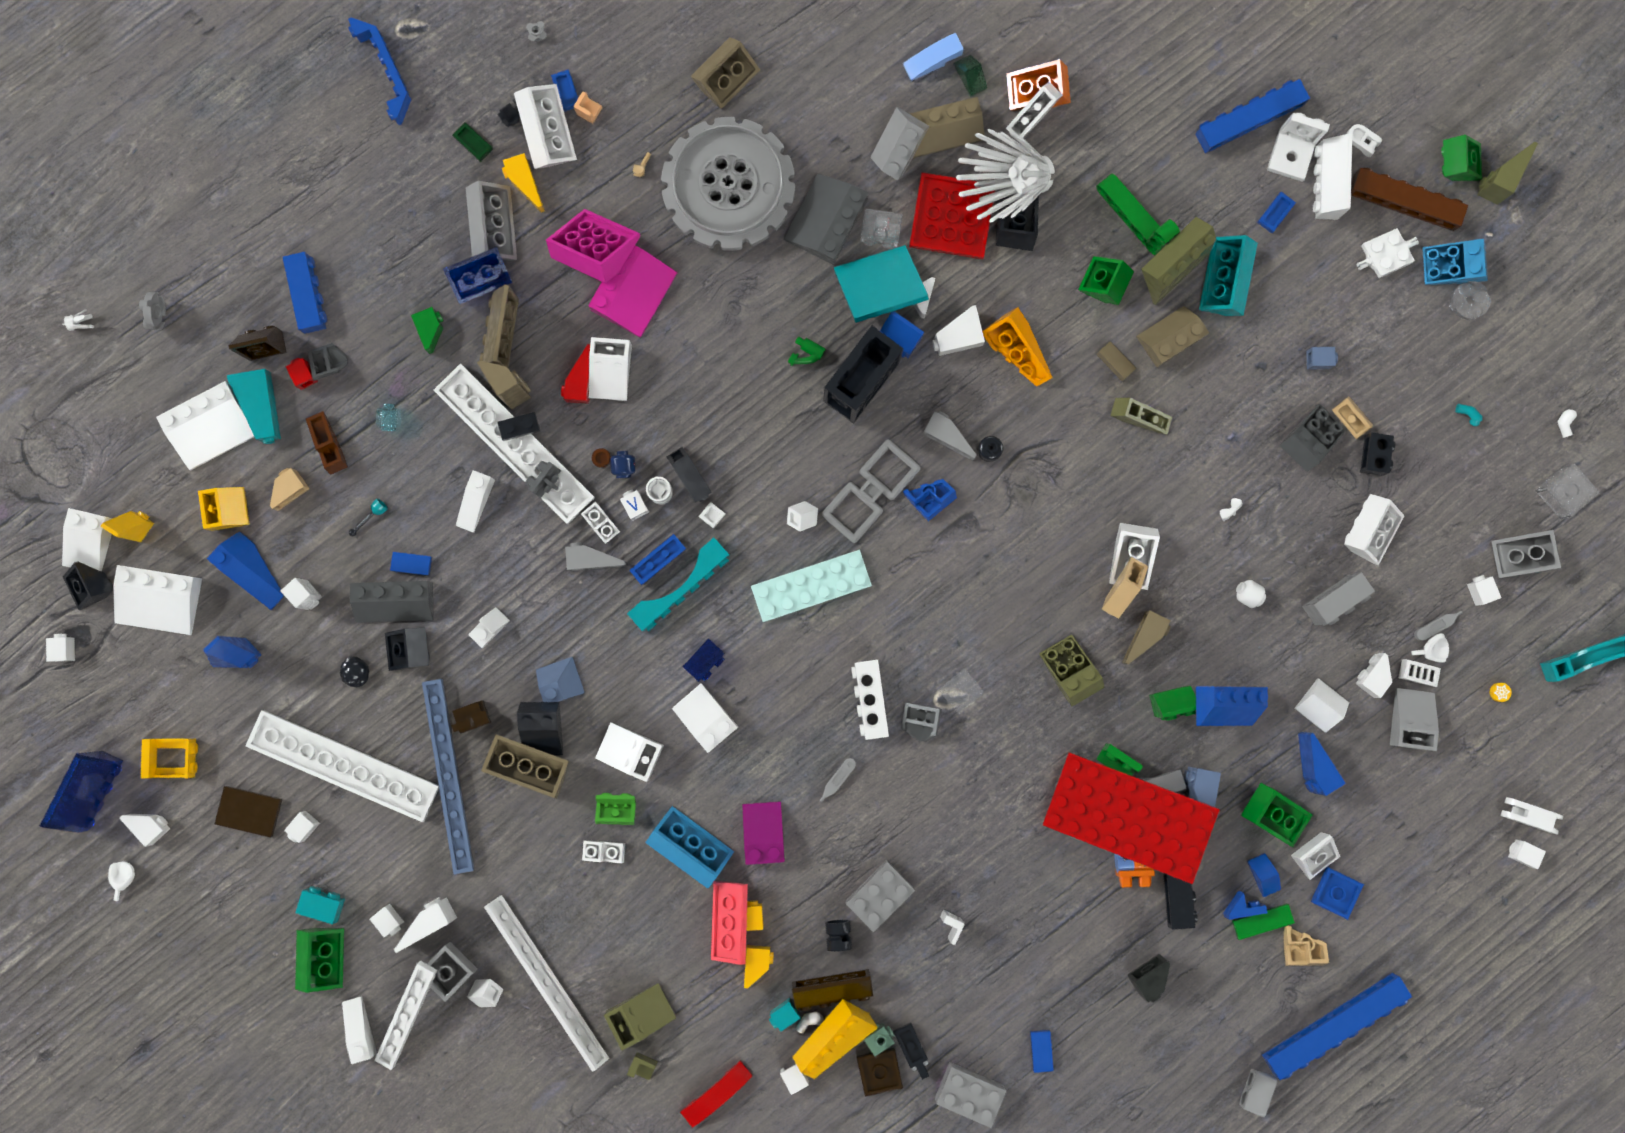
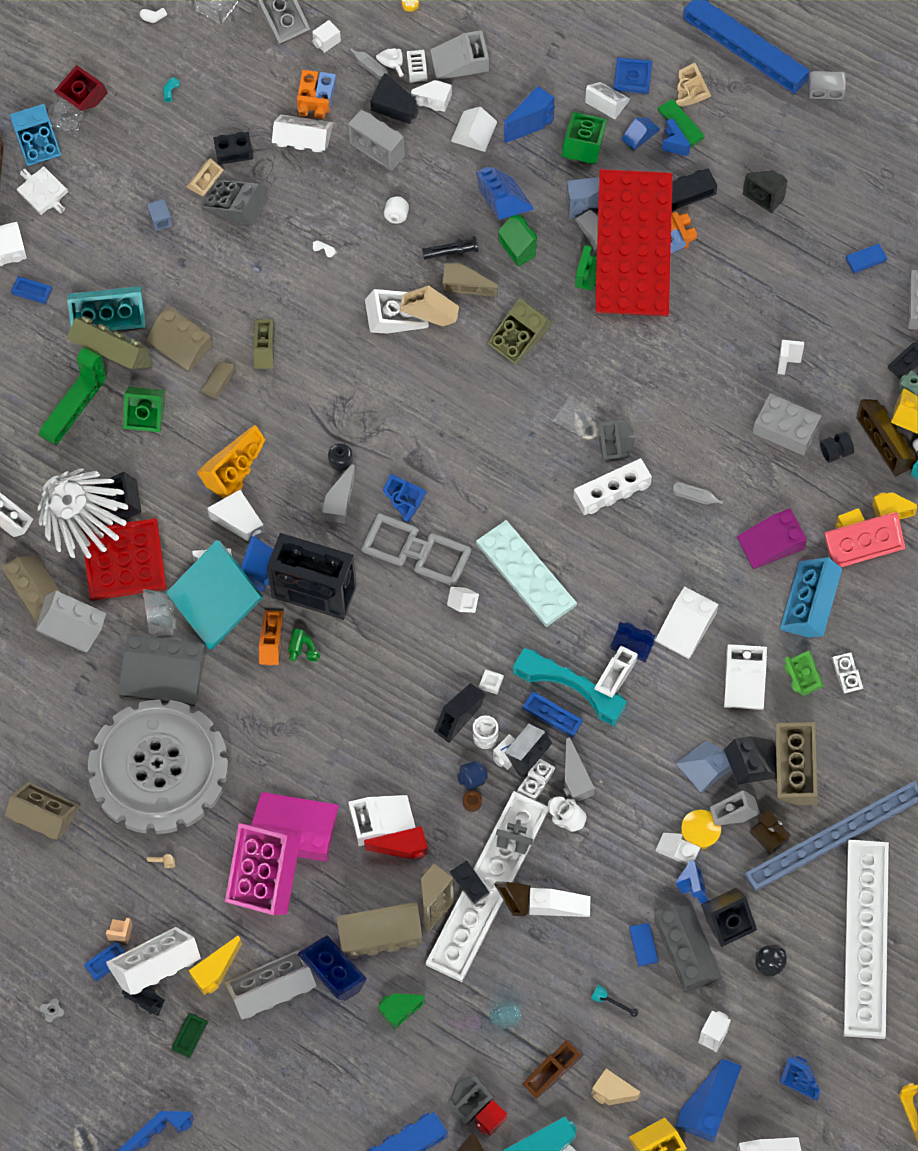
camera: 105 degrees left, 20 degrees down
(451, 630) = (692, 881): none -> blue slope
(493, 464) = (515, 896): none -> dark brown slope
(500, 656) = (700, 829): none -> yellow dish
(503, 692) = (735, 809): none -> light grey slope
(554, 537) = (566, 813): none -> white head
(622, 521) = (528, 749): none -> slope
(674, 631) = (616, 671): none -> white slope
(825, 326) = (270, 638): none -> orange slope
(1192, 609) = (459, 247): none -> black pin
(1382, 633) = (393, 101): none -> black slope
(1416, 557) = (315, 93): none -> orange hips
(1493, 320) = (81, 89): none -> dark red slope

